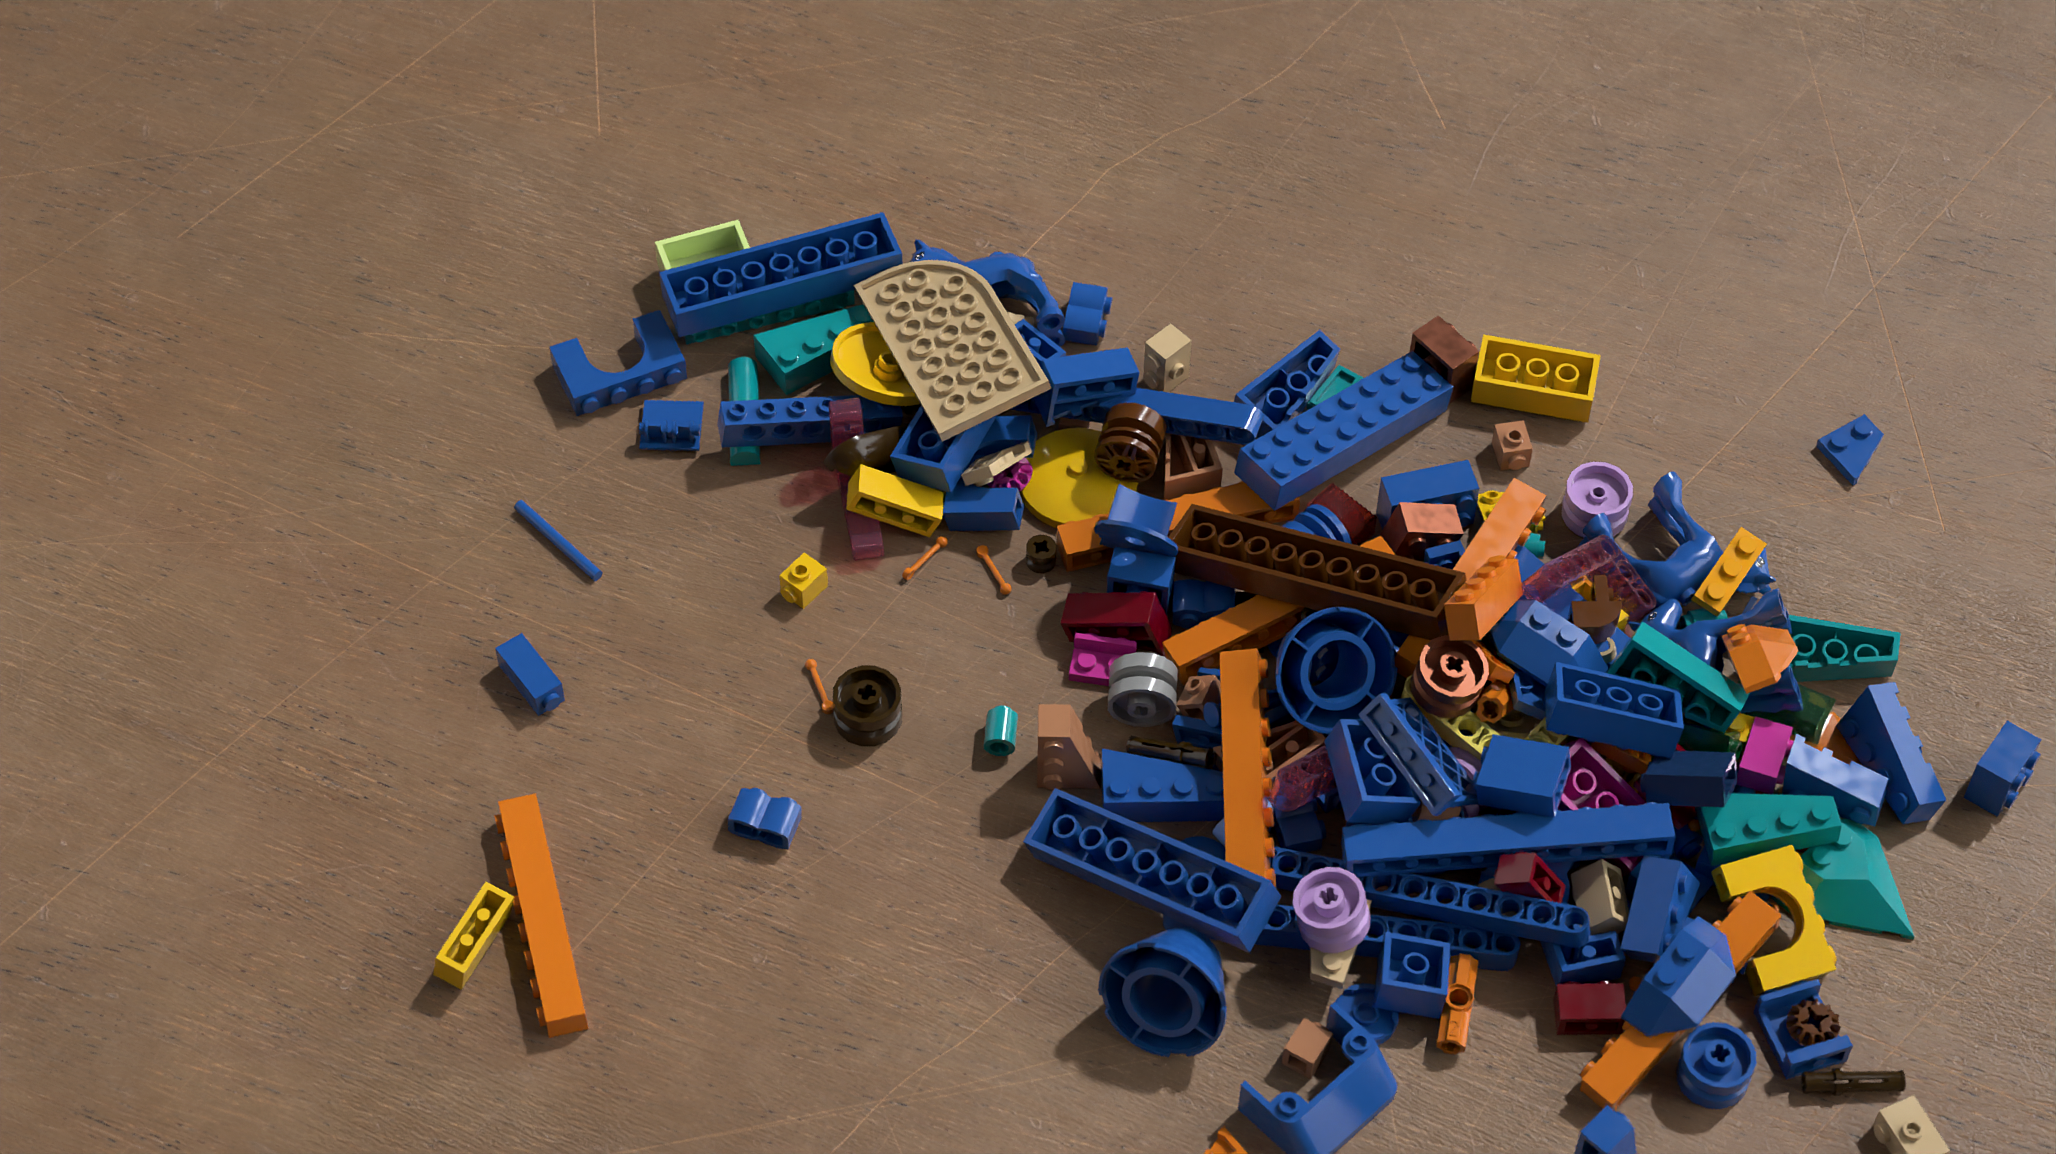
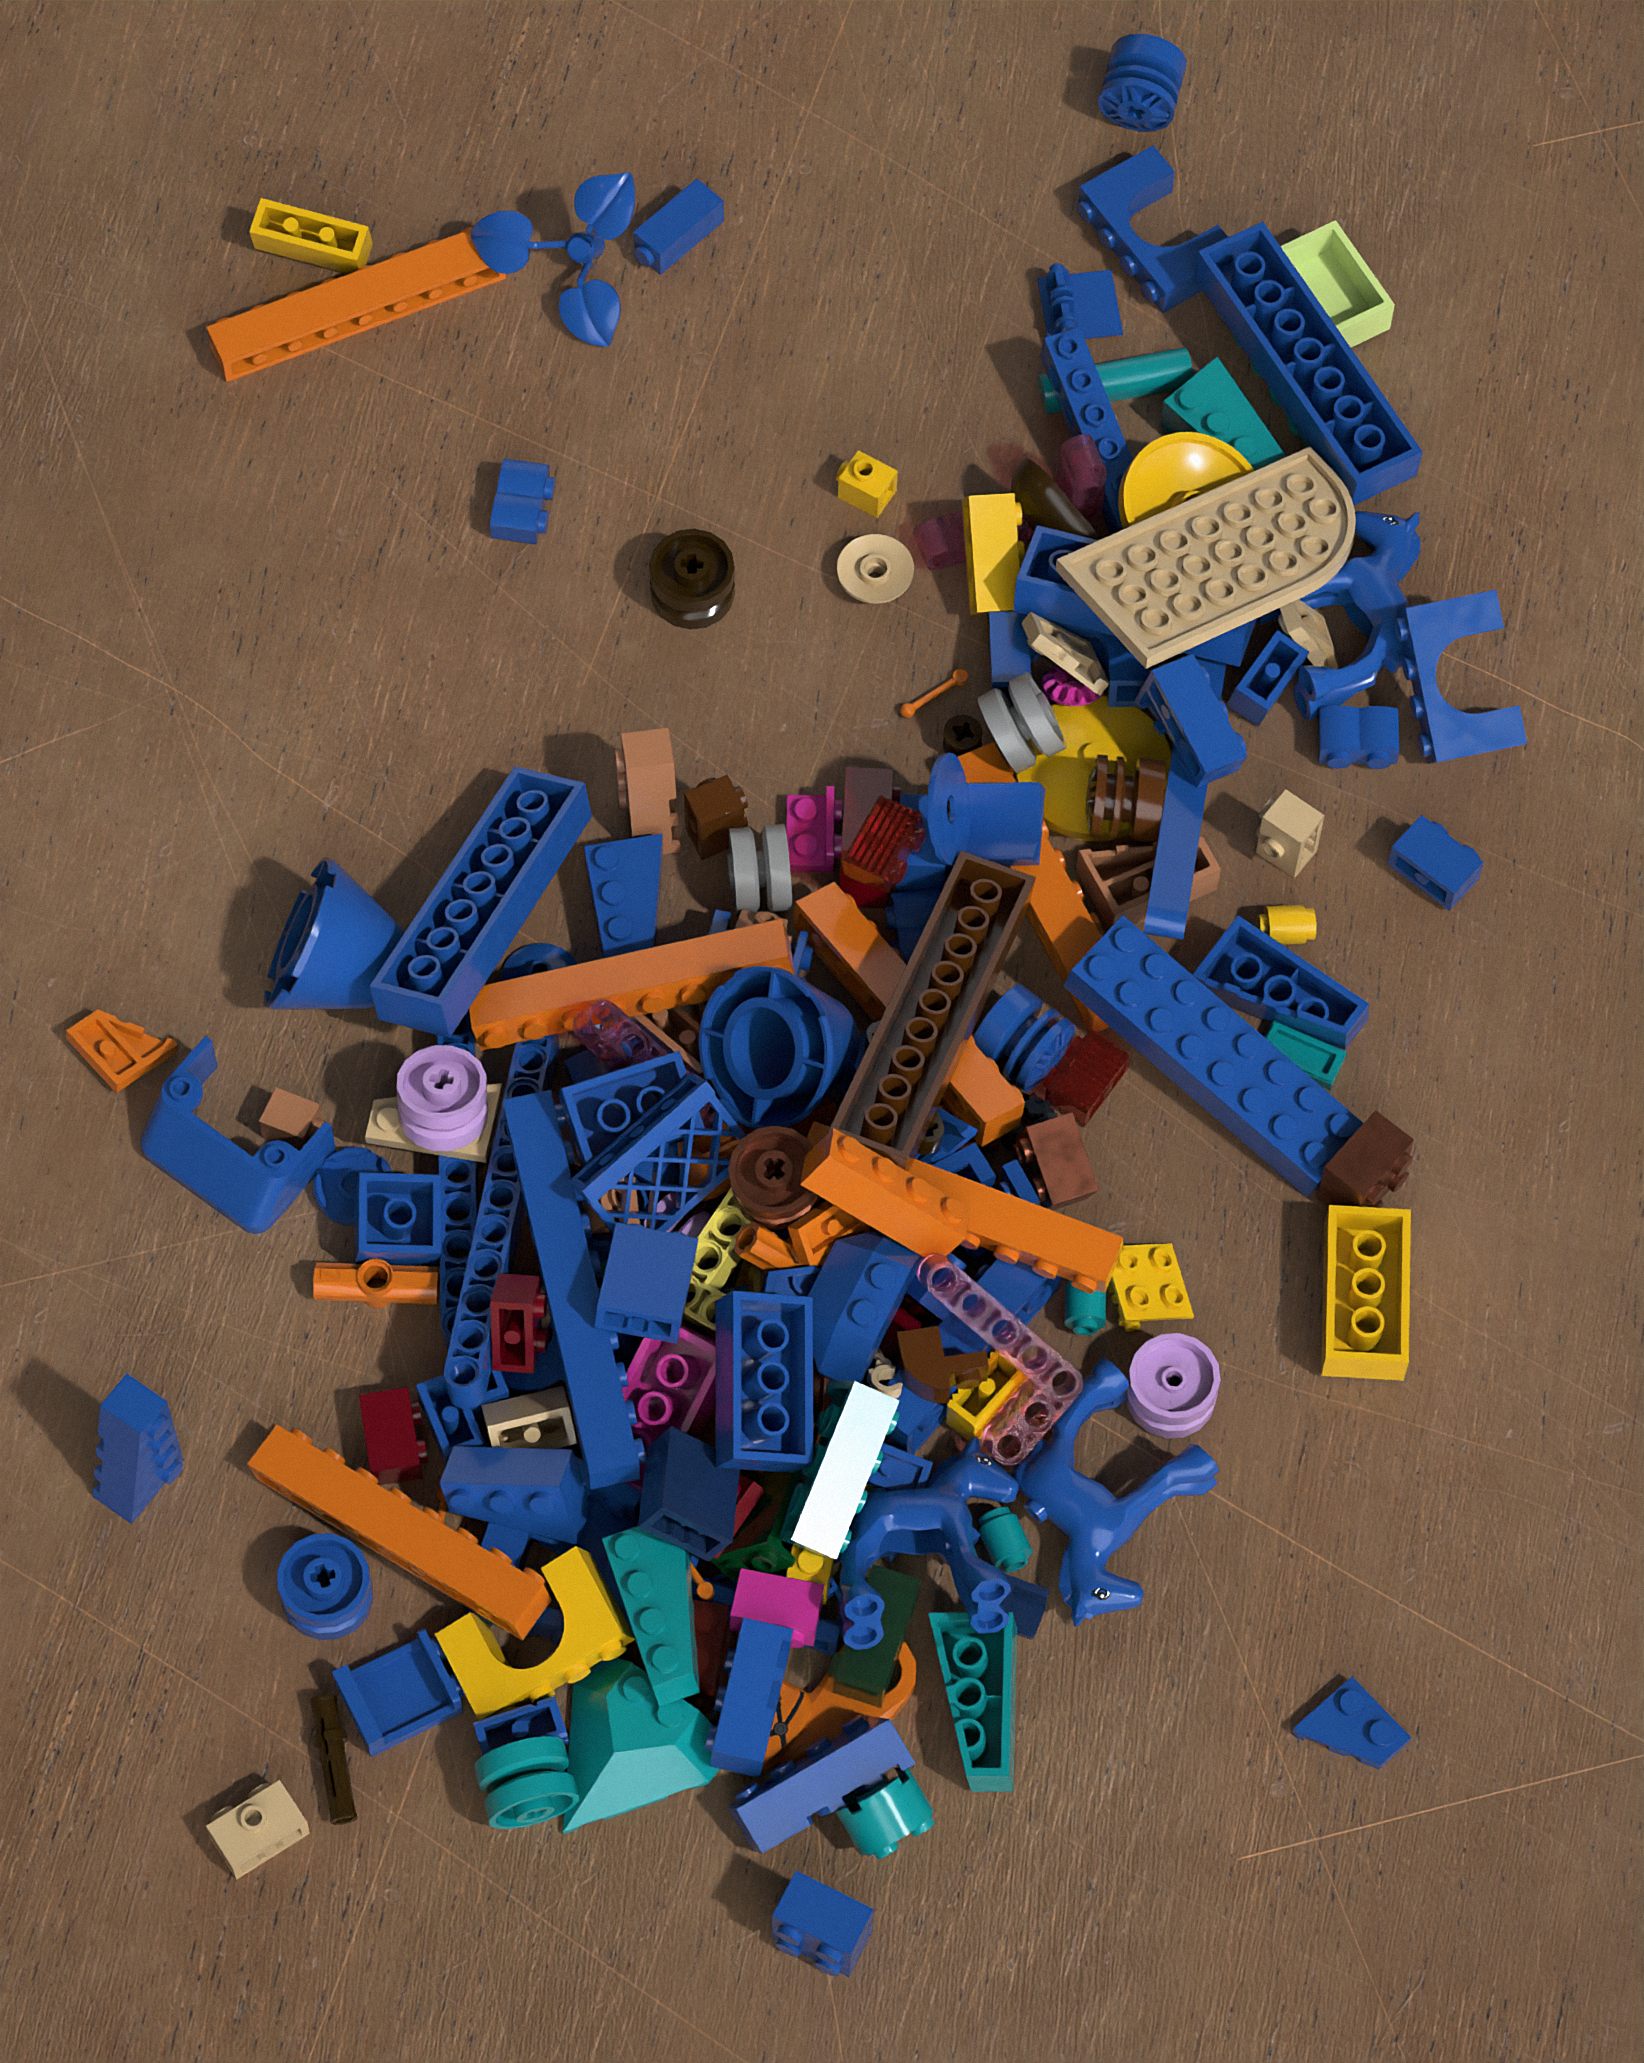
camera: 80 degrees right, 10 degrees up
(490, 344) = (1142, 82): none -> blue wheel
(526, 782) = (608, 207): none -> blue plant
(558, 540) = (883, 221): blue bar -> none
(827, 706) = (753, 517): orange hinge -> none
(880, 576) = (880, 555): none -> tan dish
(941, 542) = (909, 600): orange hinge -> none
(1000, 731) = (690, 729): teal brick -> none
(1031, 242) = (1425, 634): none -> blue arch
(1053, 497) = (1026, 720): none -> light grey wheel
(1093, 710) = (711, 812): none -> reddish brown brick
(1157, 586) = (884, 844): none -> clear red brick
(1179, 753) = (672, 924): dark brown pin -> none
(1200, 284) = (1436, 862): none -> blue brick
(1232, 378) = (1288, 923): none -> yellow brick
(1435, 485) = (1125, 1172): blue brick -> none
(1512, 445) = (1250, 1277): nougat brick -> none
(1683, 982) = (409, 1516): blue wedge -> none
(1729, 571) = (1069, 1549): light orange plate -> none
(1759, 654) = (895, 1561): orange wedge -> none
(1807, 1034) = (395, 1719): reddish brown gear -> none
(1849, 944) = (520, 1724): none -> blue brick
(1889, 941) = (526, 1782): none -> teal wheel
(1930, 714) = (886, 1814): none -> teal brick

